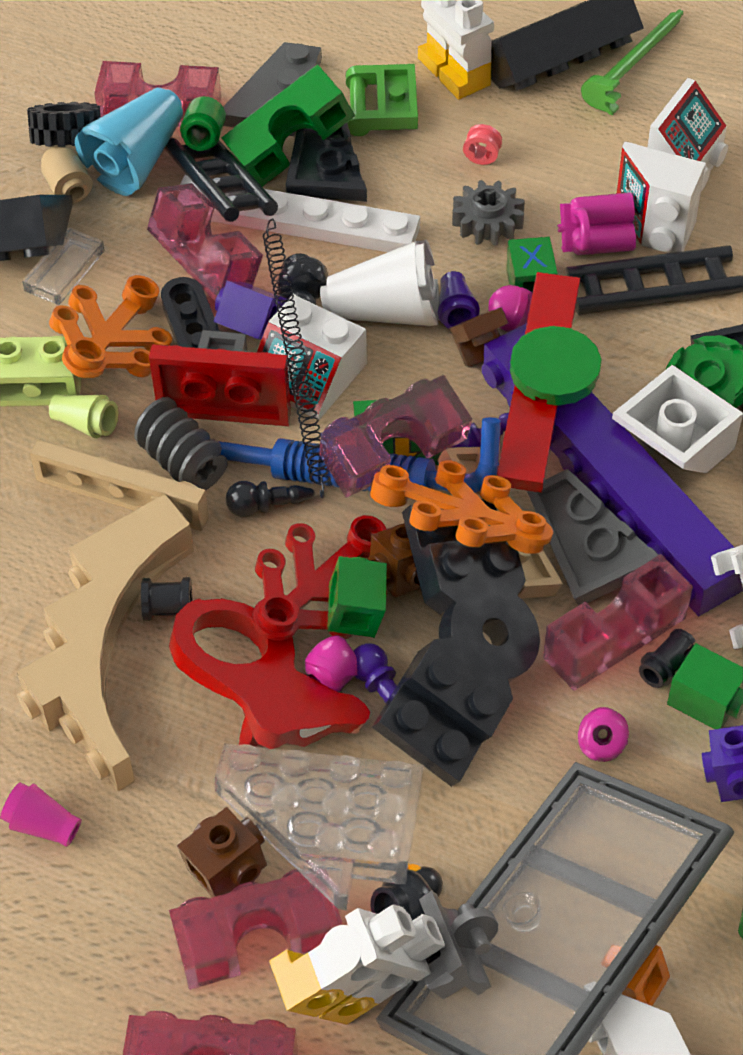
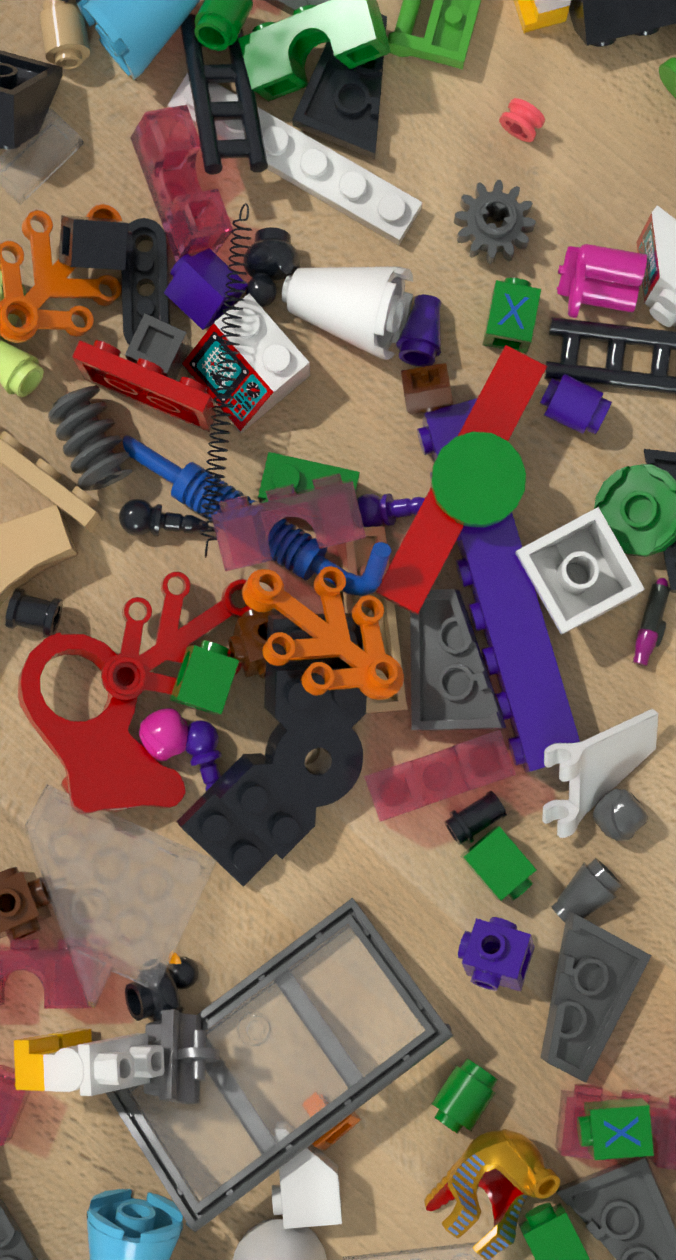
camera: 15 degrees right, 30 degrees up
(140, 290) = (94, 242): none -> black brick
(515, 304) = (472, 361): dark pink piece -> none
(609, 747) = (385, 883): dark pink piece -> none
(615, 317) = (575, 404): none -> dark purple brick

